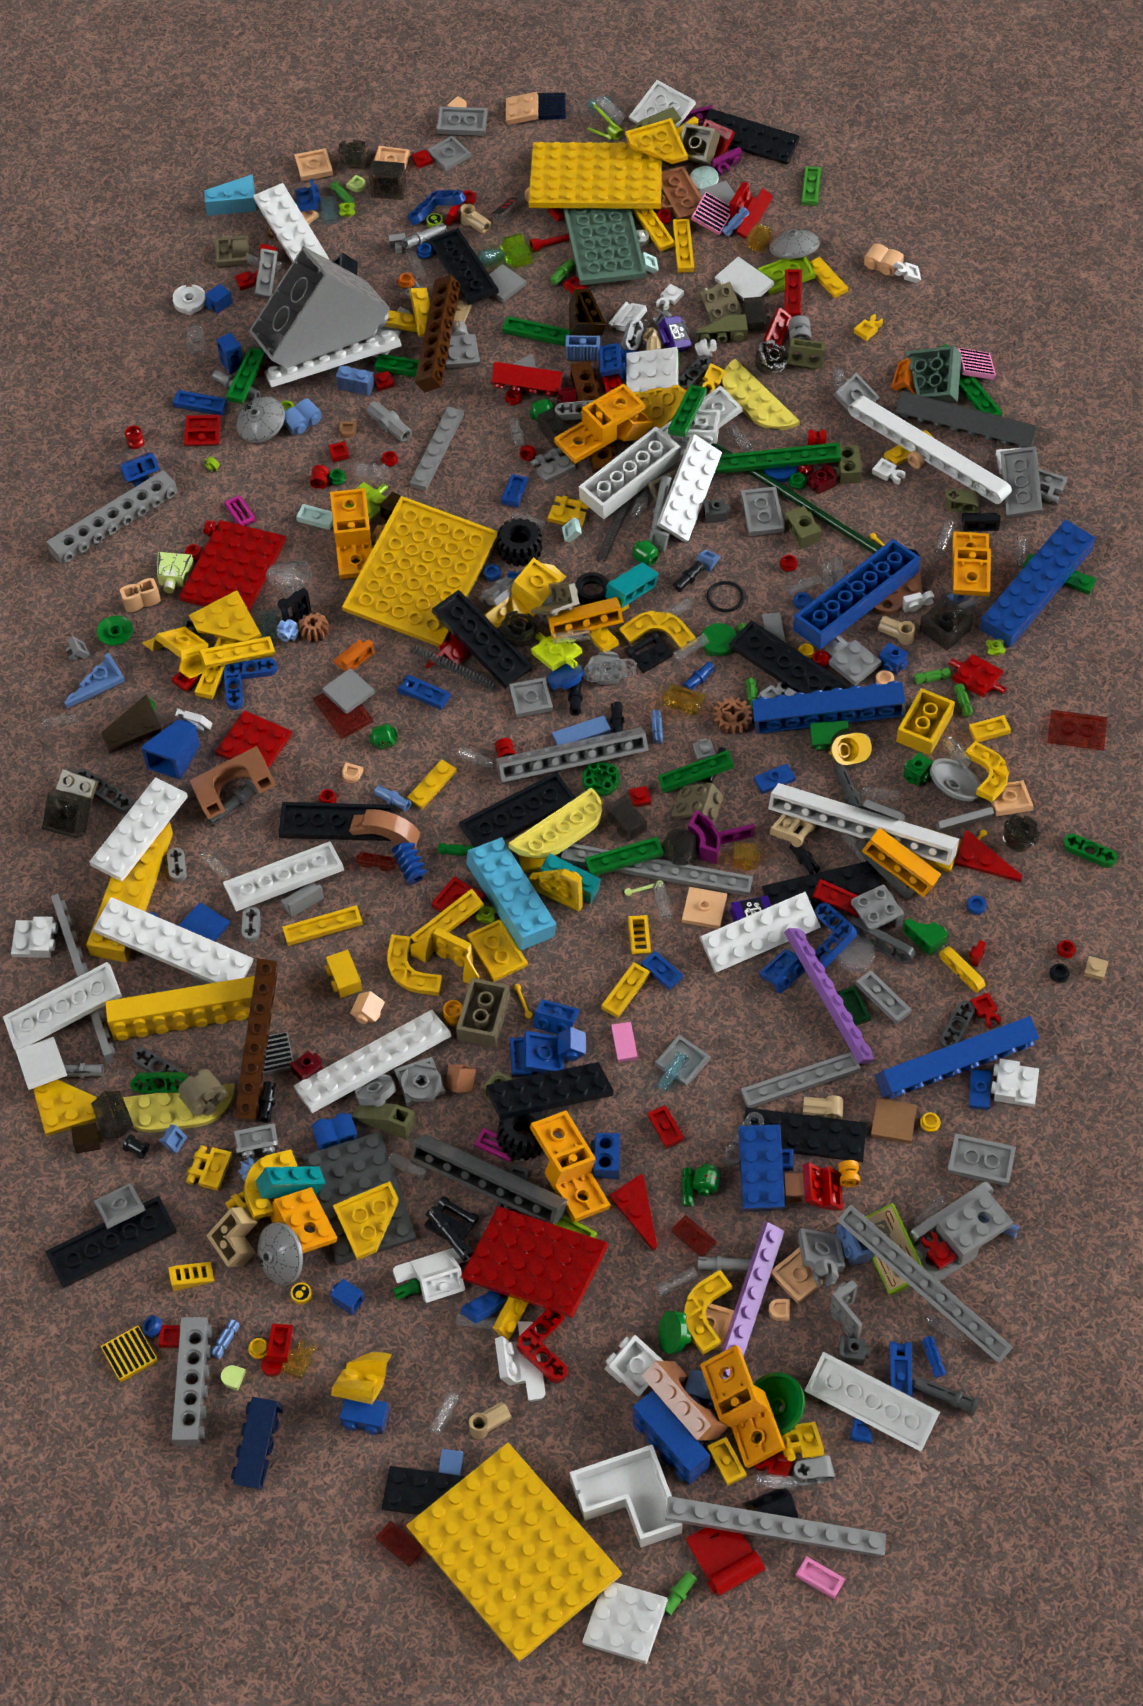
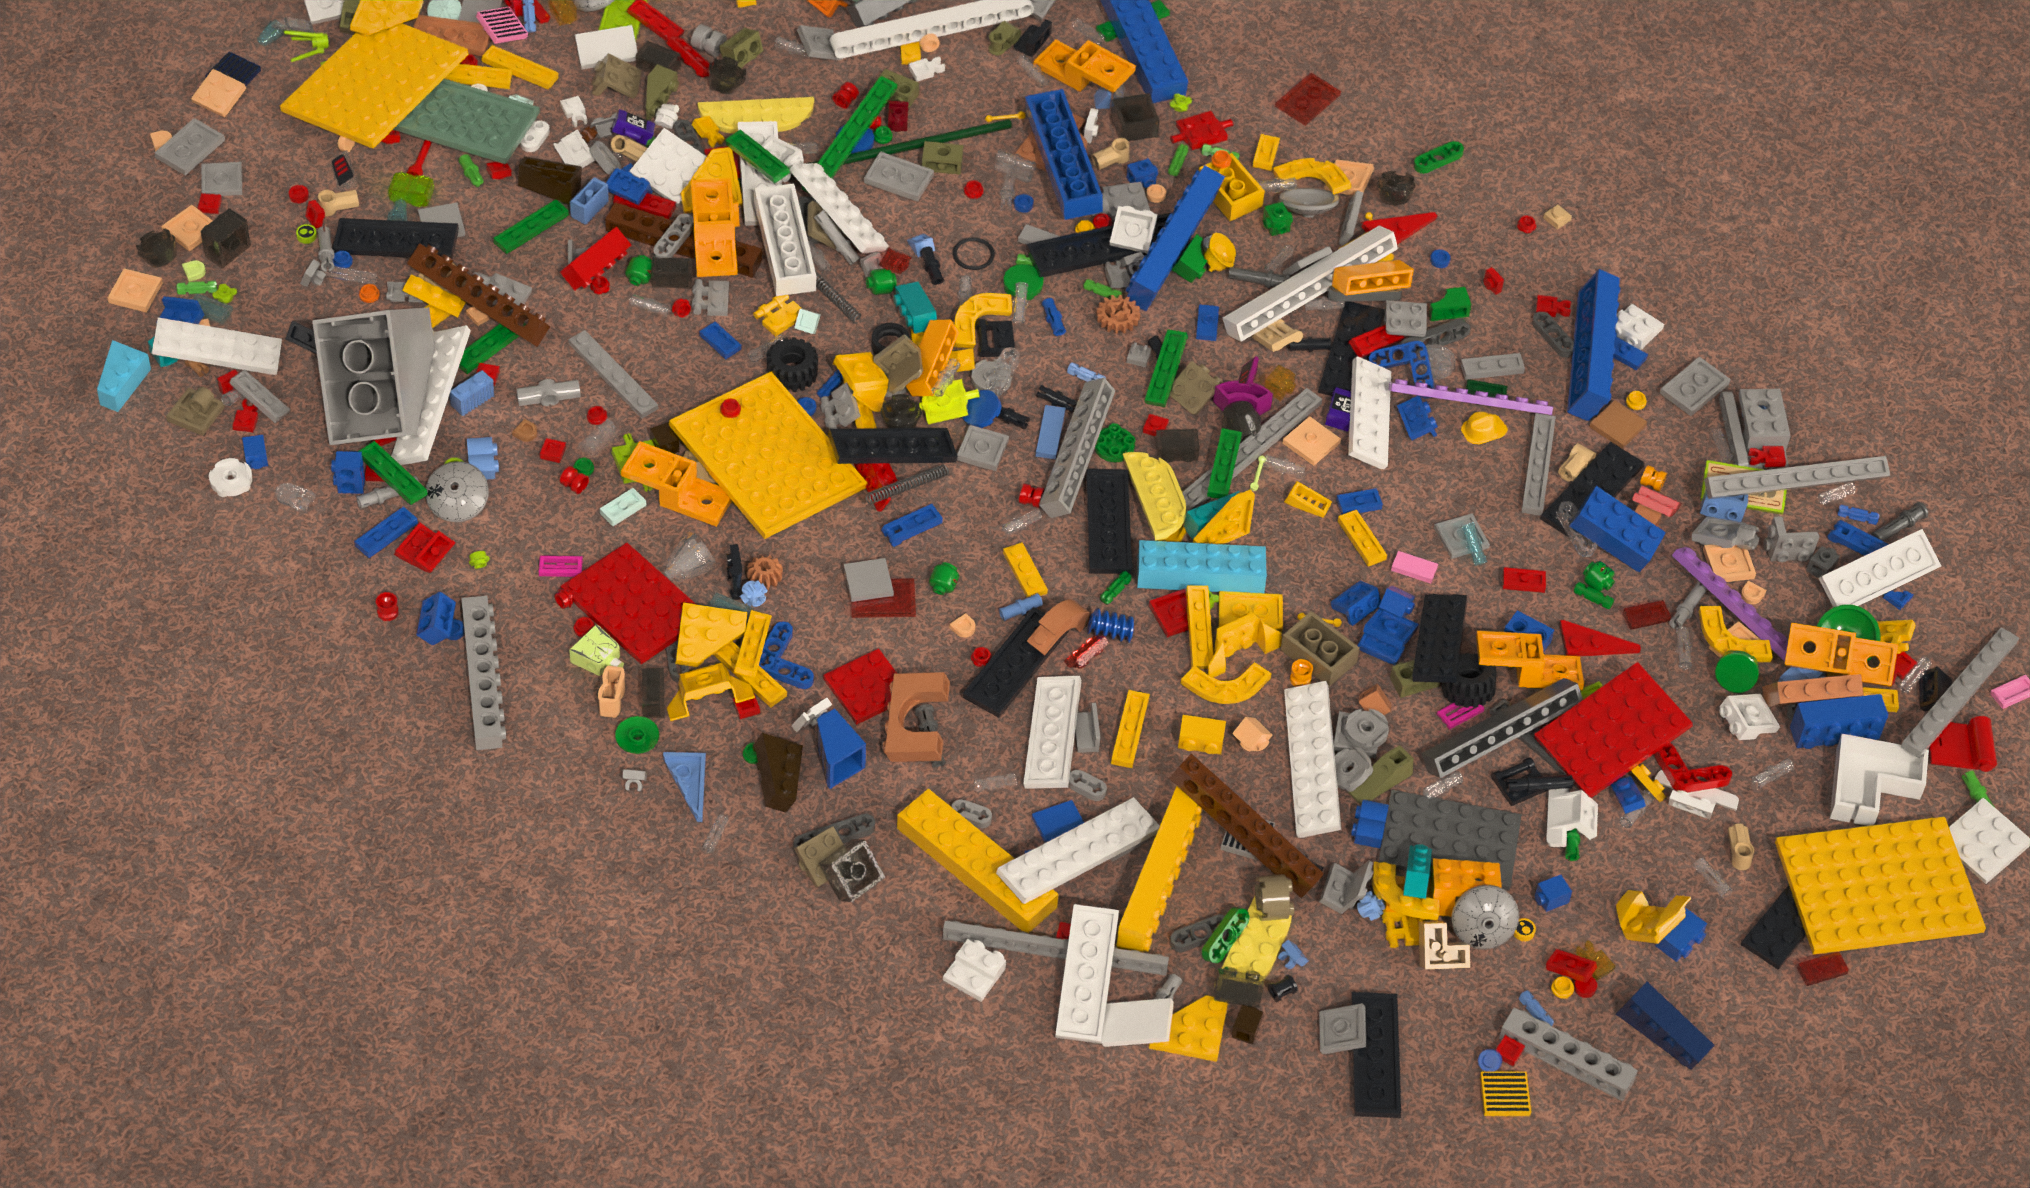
camera: 65 degrees left, 5 degrees down
(138, 829) = (924, 814): white plate -> none
(157, 619) = (653, 693): none -> clear smoke brick
(192, 1282) = (1450, 1021): yellow slope -> none
(214, 1170) = (1348, 935): yellow plate -> none
(233, 1376) = (1579, 1022): yellowish green tile -> none
(304, 1071) = (1284, 813): dark red brick -> none
(355, 655) = (823, 557): orange panel -> none
(367, 1218) = (1486, 837): yellow plate -> none
(435, 199) = (286, 214): blue beam -> none
(438, 524) = (730, 408): none -> red plate
(451, 1462) = (1764, 895): medium blue slope -> none
(566, 395) = (644, 242): dark red brick -> none
(587, 1412) = (1772, 773): none -> clear pin
(626, 288) = (537, 134): none -> white plate
(648, 314) = (589, 134): none -> reddish brown plate
(665, 548) = (895, 261): none -> clear red plate
(683, 699) = (1073, 339): clear yellow bracket -> none
(715, 510) = (872, 204): dark grey brick -> none
(813, 1023) = (1483, 427): none -> yellow piece
(816, 1471) = (1920, 643): light grey piece -> none
(818, 675) = (1133, 229): none -> white plate
(937, 697) = (1221, 159): none -> orange plate
(961, 967) = (1513, 299): yellow beam -> none
(1059, 973) = (1546, 241): black plate -> none

